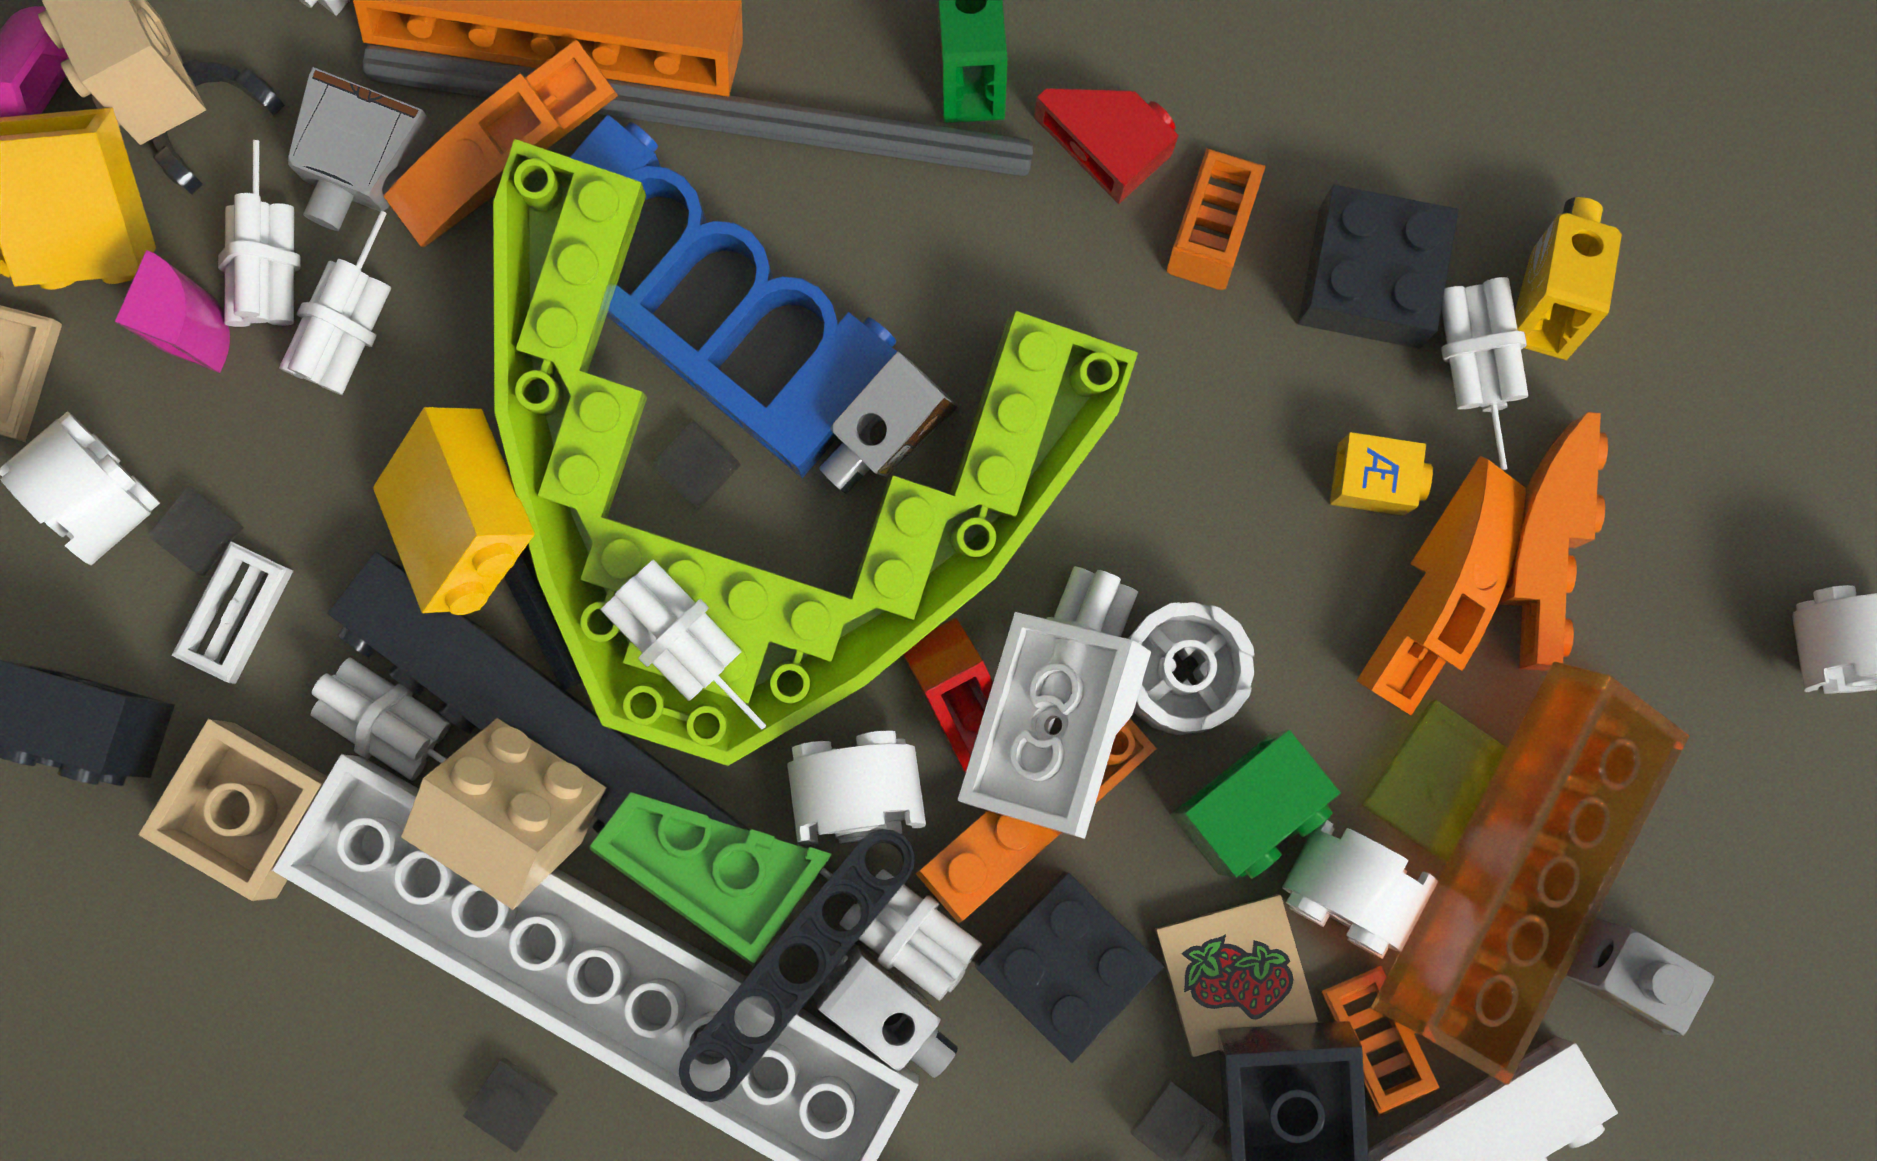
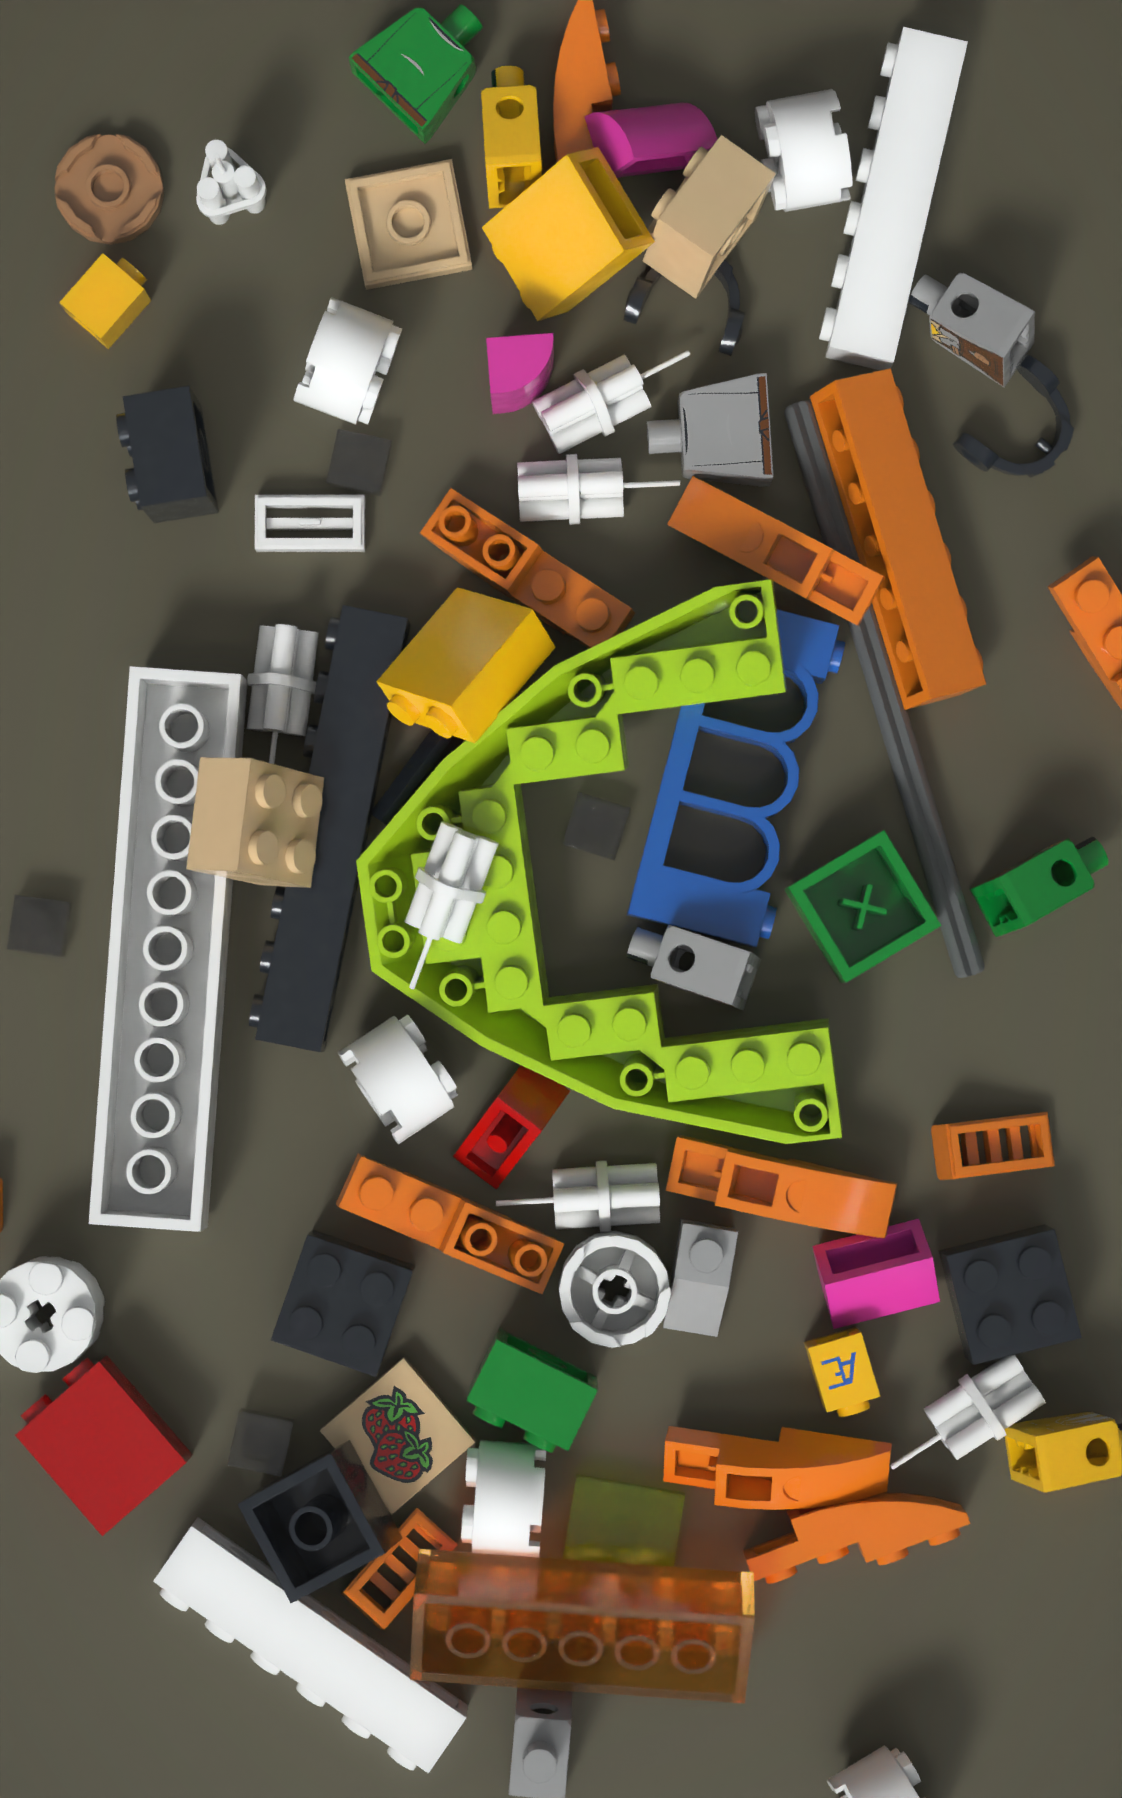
camera: 65 degrees right, 5 degrees up
(234, 808) = (163, 612): tan brick -> none
(376, 416) = (525, 571): none -> orange slope
(710, 872) = (284, 999): bright green wing -> none
(770, 985) = (272, 1111): black beam -> none
(862, 997) = (245, 1157): torso -> none
(908, 227) = (862, 907): none -> green brick
(917, 940) = (310, 1168): white piece -> none
(1042, 676) = (554, 1182): white piece -> none
(1109, 134) = (1018, 1030): red slope -> none
(1159, 447) = (781, 1188): none -> orange slope
(1214, 571) = (700, 1277): none -> light grey slope
(1294, 393) = (876, 1275): none -> dark pink brick

